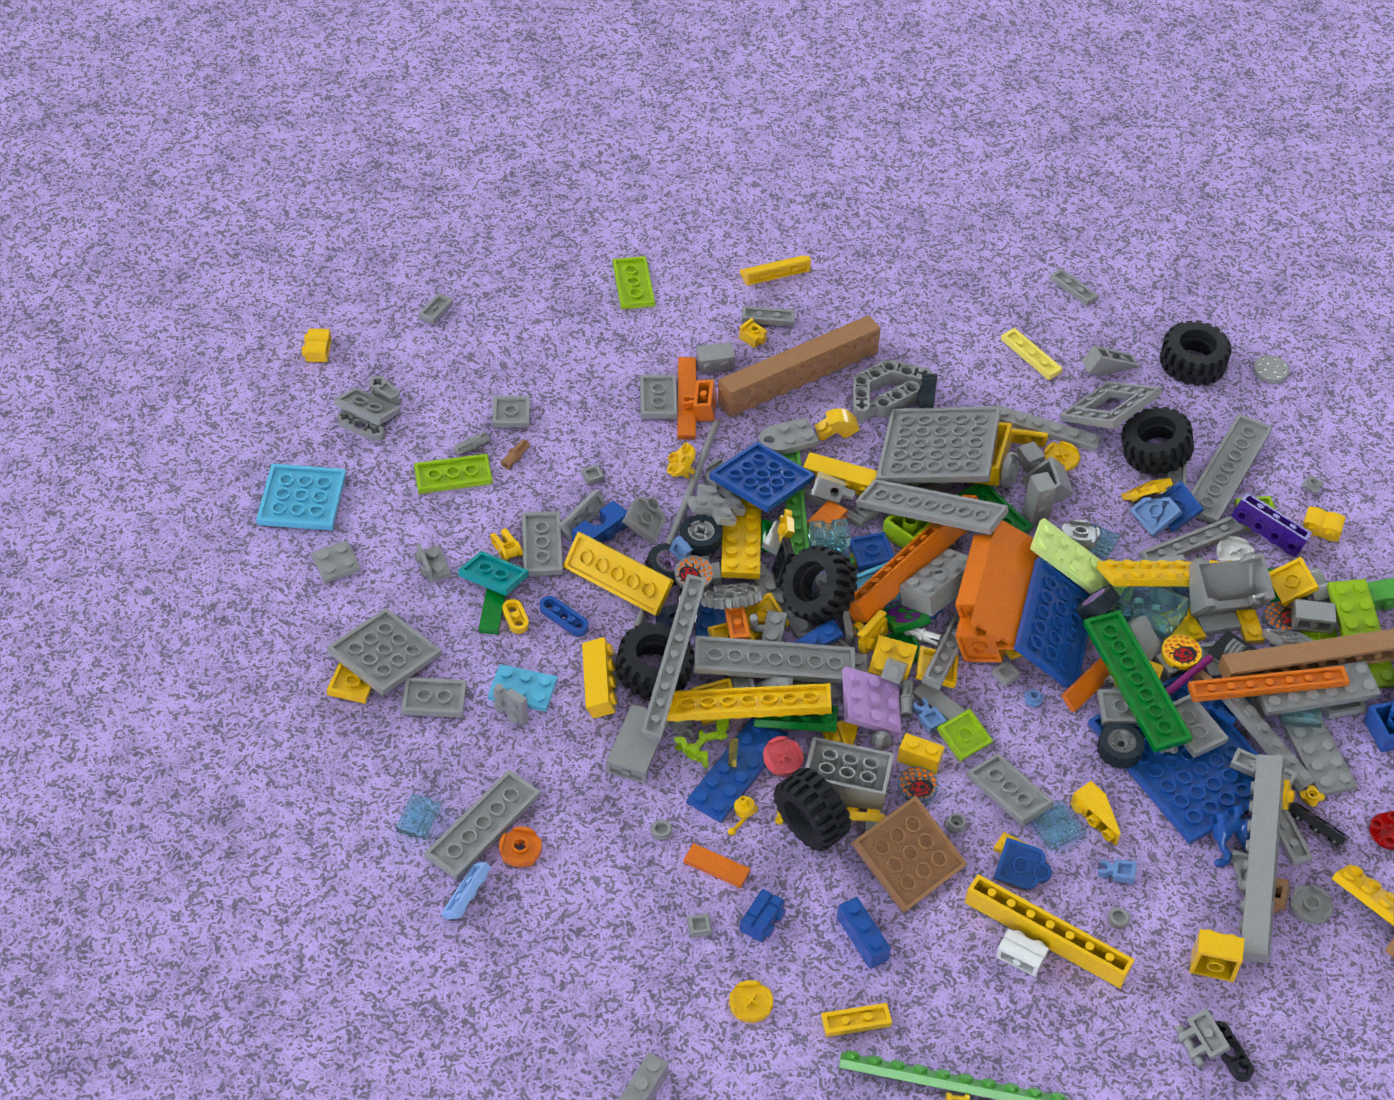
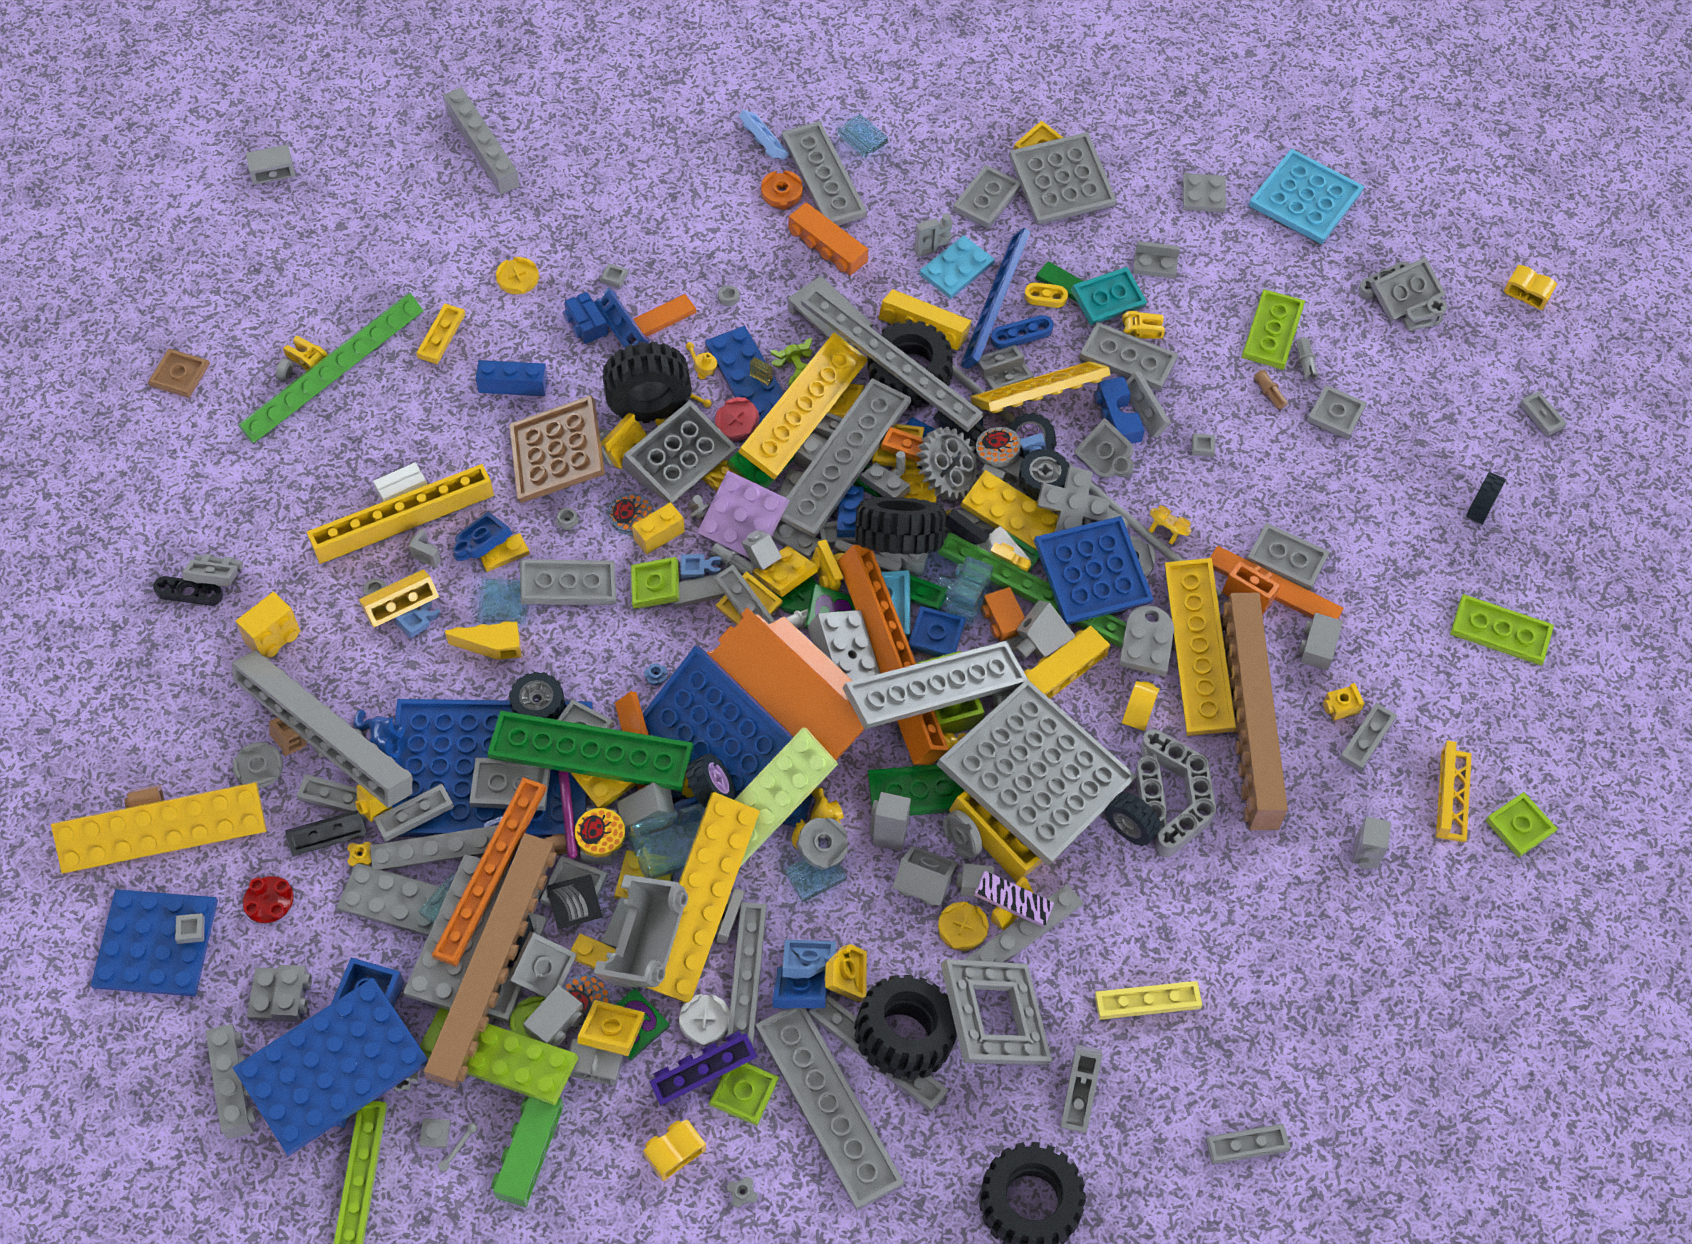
camera: 120 degrees right, 10 degrees up
(537, 644) = (995, 299): none -> blue tile
(540, 307) = (1485, 498): none -> black wheel
(556, 784) = (827, 239): none -> orange brick
(607, 613) = (1004, 367): none -> light grey slope
(748, 887) = (619, 319): none -> blue plate
(773, 234) = (1521, 824): none -> lime plate
(775, 408) = (1199, 647): none -> yellow plate
(848, 284) = (1371, 842): none -> light grey brick
(1032, 426) = (1014, 899): none -> lavender tile
(1063, 900) = (424, 551): none -> light grey bracket
(1116, 888) = (398, 598): none -> yellow brick

